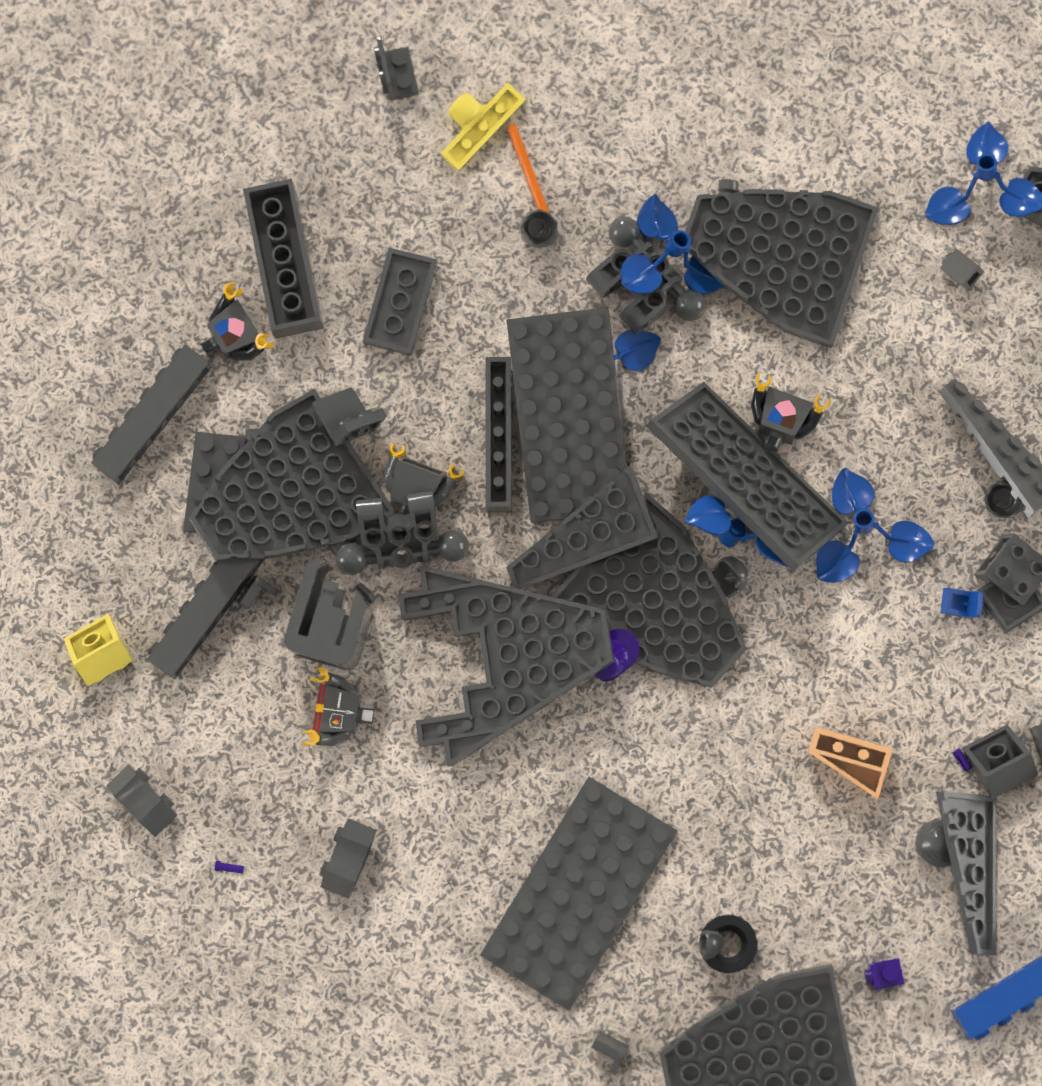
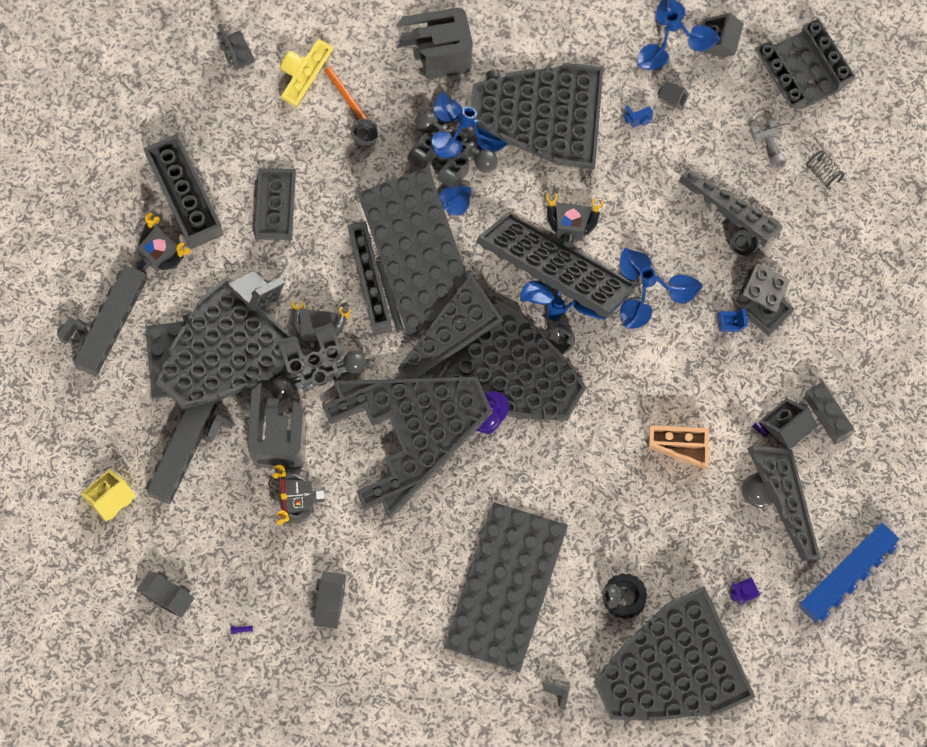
camera: 20 degrees left, 10 degrees down
(94, 414) = (68, 329): none -> dark grey bracket
(520, 473) = (390, 298): none -> dark grey bar
(681, 126) = (441, 28): none -> dark grey piece
(911, 290) = (638, 118): none -> blue bracket

